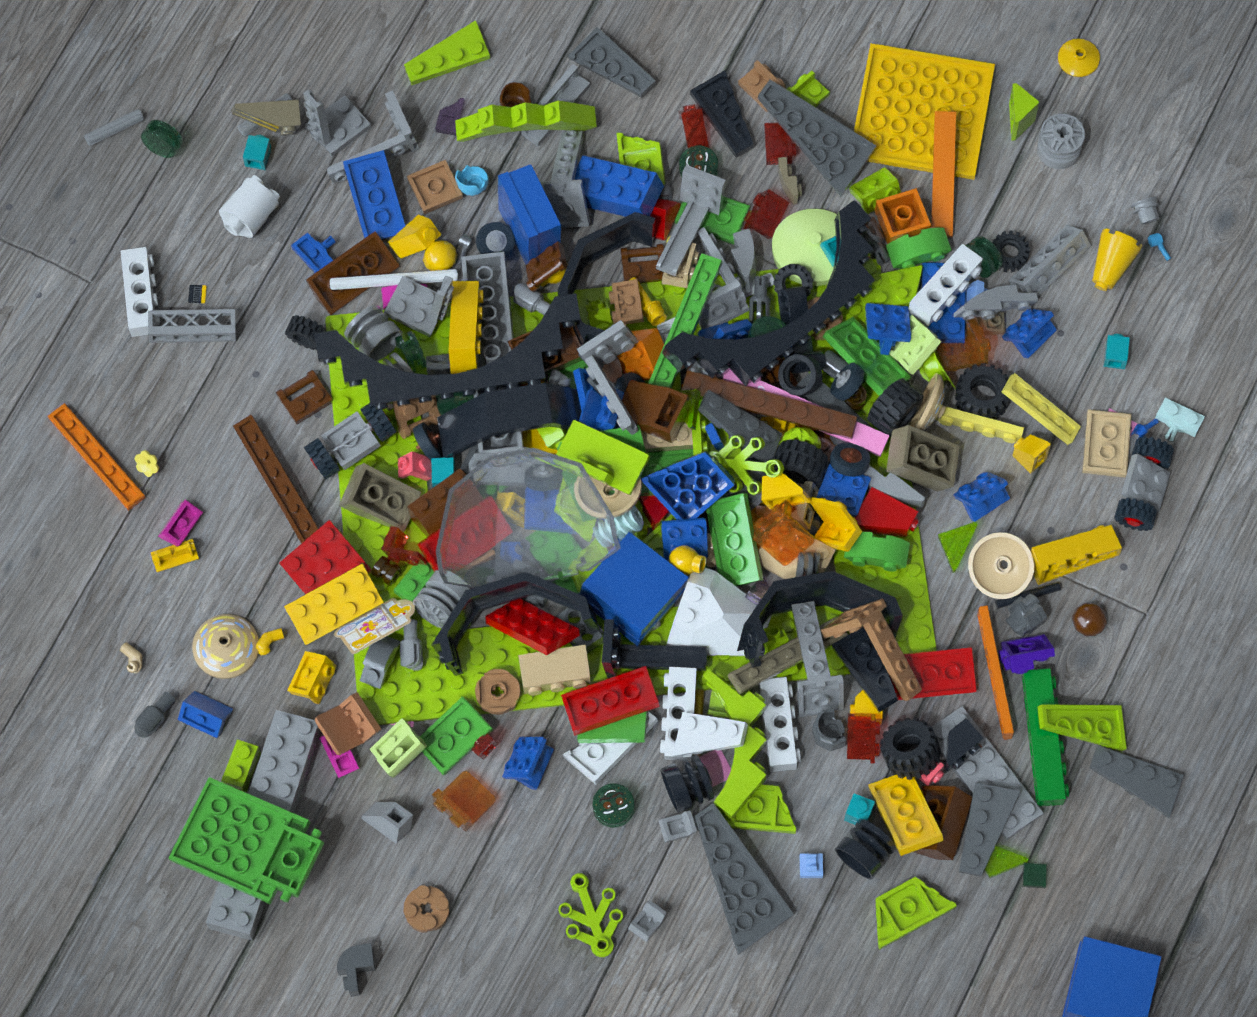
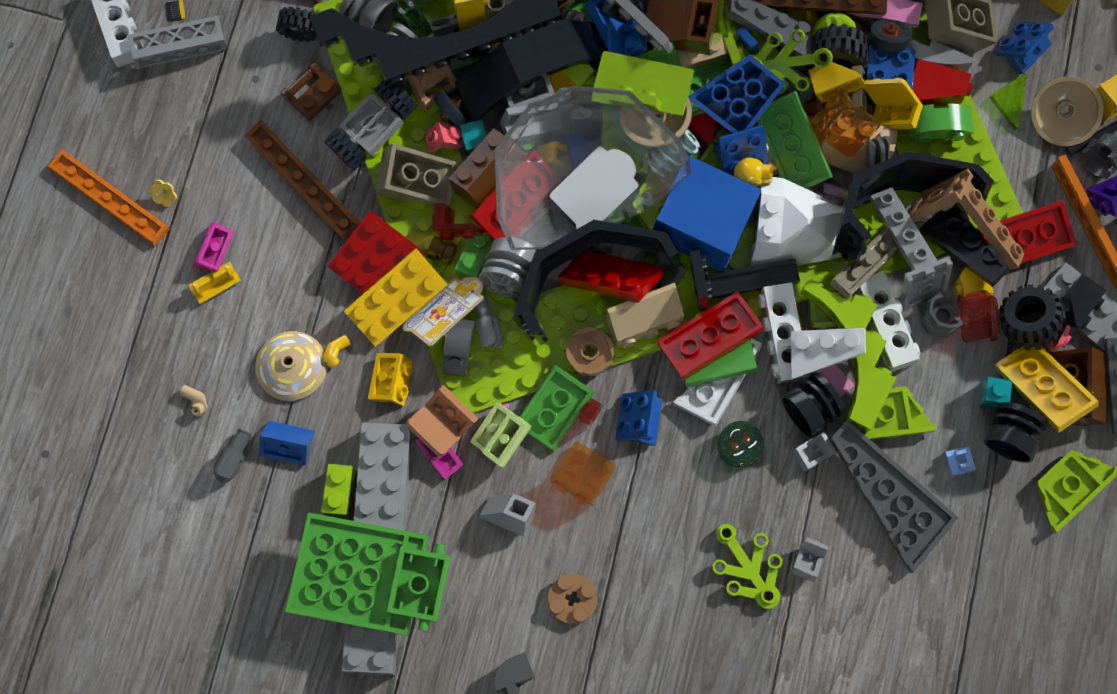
camera: 15 degrees left, 5 degrees up
(538, 542) = (596, 186): none -> white sticker

